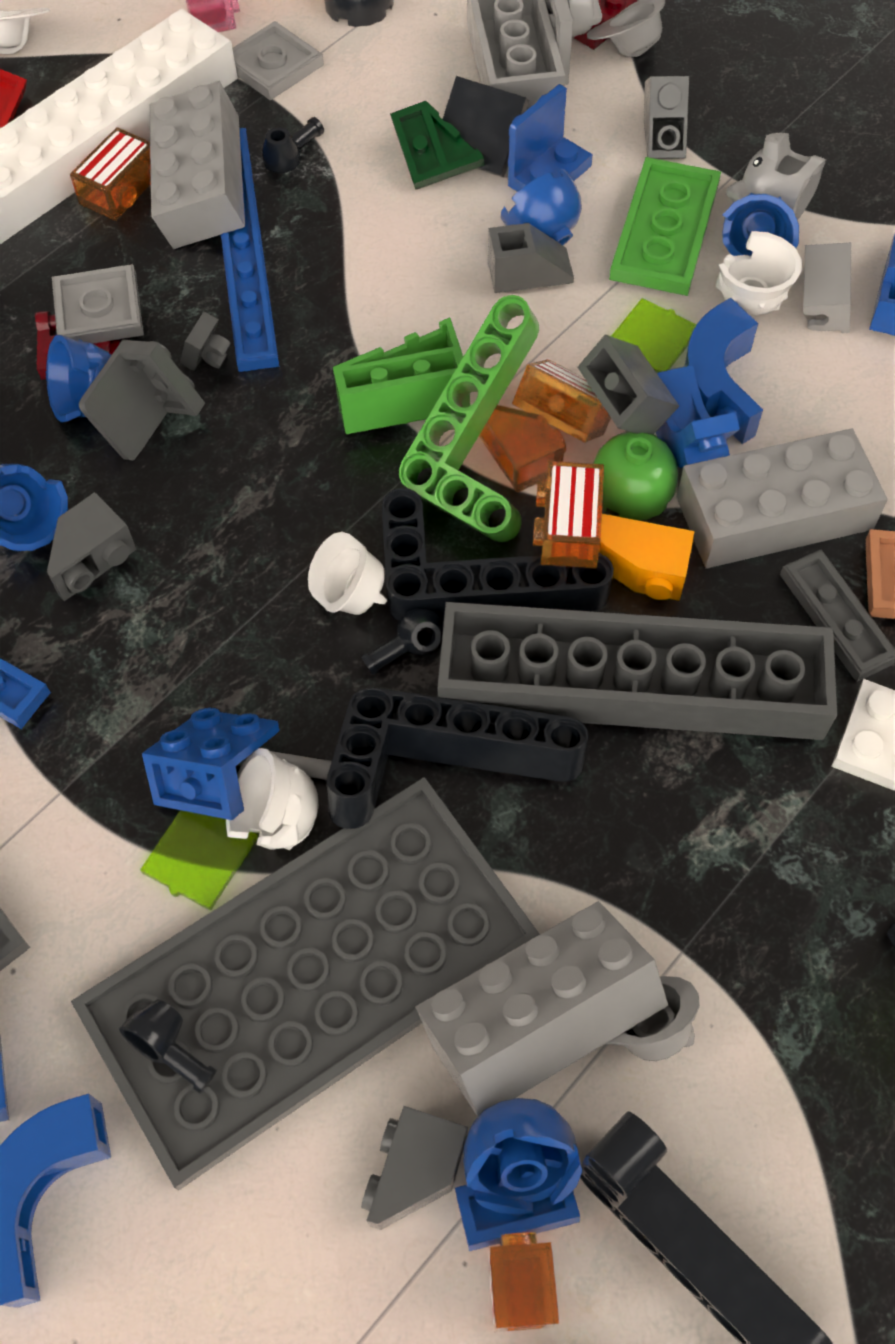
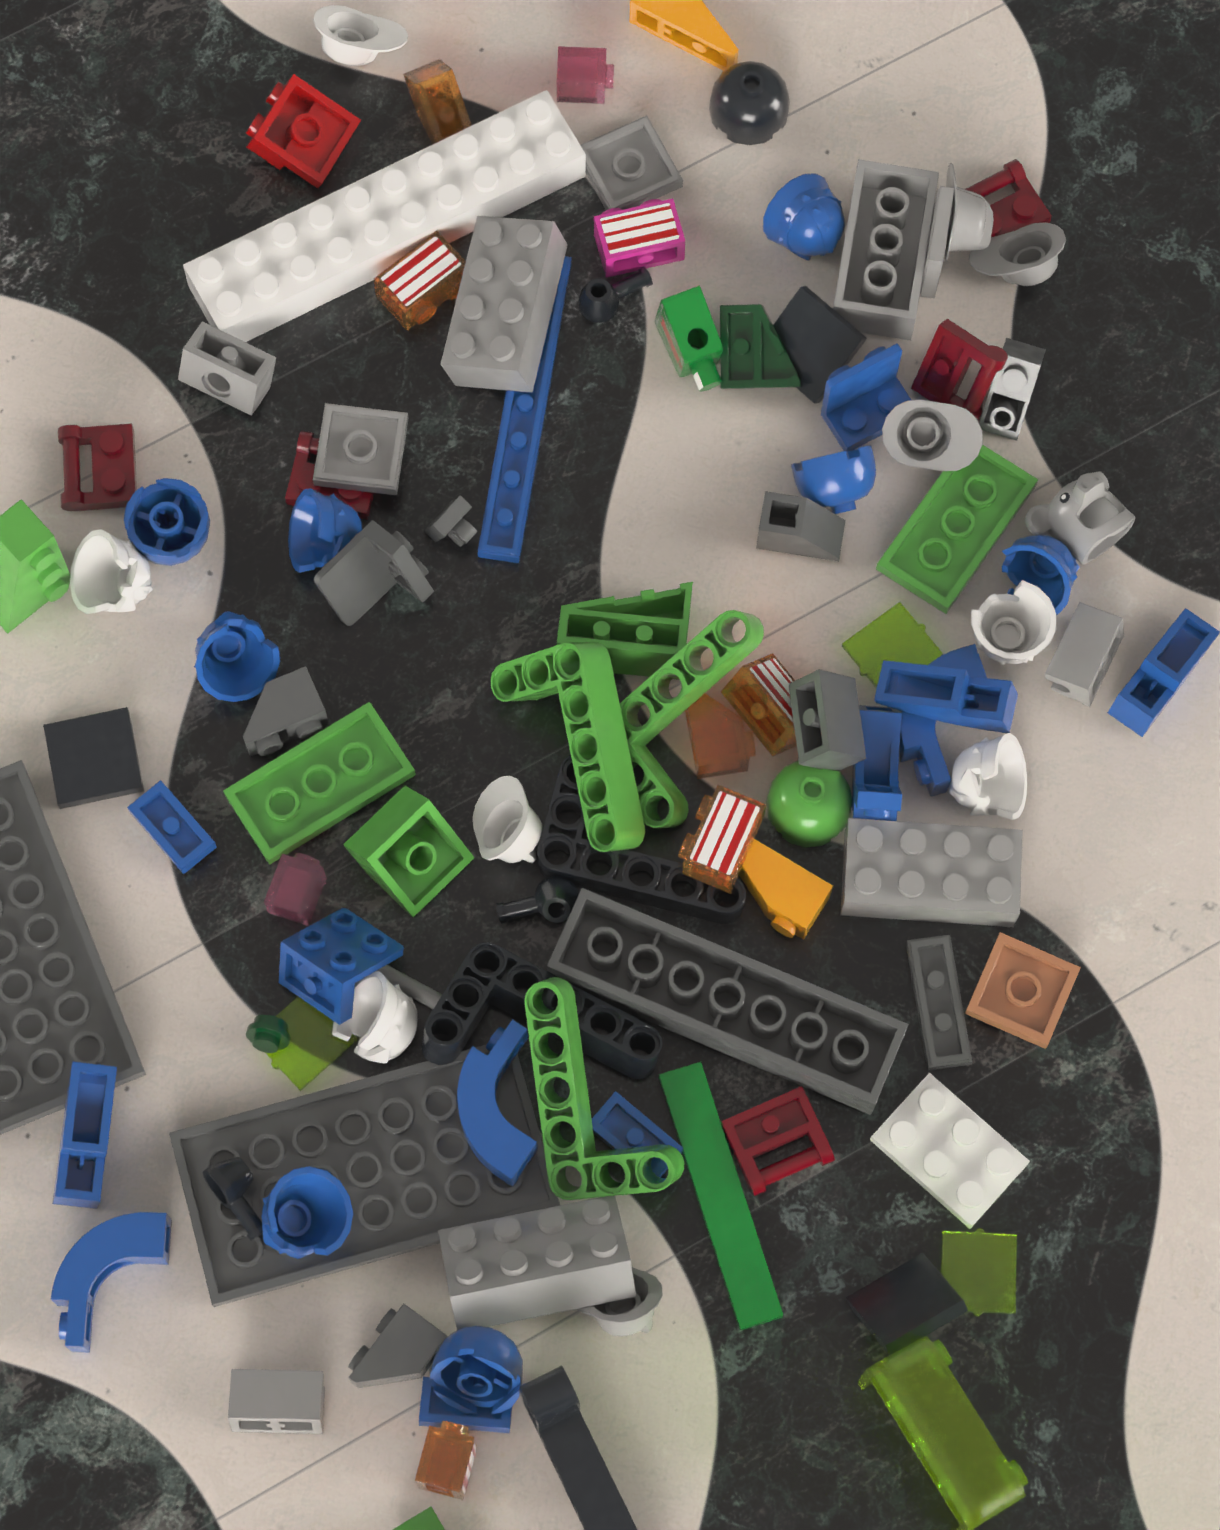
camera: 15 degrees right, 10 degrees up
(85, 41) = (437, 100): none -> clear orange slope
(140, 600) = (319, 783): none -> bright green plate
(144, 703) = (295, 888): none -> clear pink brick
(156, 856) = (268, 1033): none -> dark green plate
(254, 631) = (409, 850): none -> bright green slope
(255, 1035) = (306, 1213): none -> blue helmet
(286, 1282) = (276, 1401): none -> light grey hinge
(300, 94) = (639, 237): none -> brick
(367, 410) = (594, 733): none -> bright green beam
(371, 144) = (687, 322): none -> green torso
(433, 878) = (490, 1136): none -> blue arch
(437, 43) = (805, 217): none -> blue helmet
(521, 824) = (576, 1109): none -> bright green beam
(592, 839) = (626, 1127): none -> blue plate
(605, 108) = (948, 363): none -> dark red plate
(617, 158) = (932, 435): none -> light grey piece
(710, 876) = (720, 1196): none -> green tile
(729, 782) = (773, 1126): none -> dark red plate
(730, 336) = (947, 695): none -> blue slope
(793, 401) = (991, 778): none -> white helmet

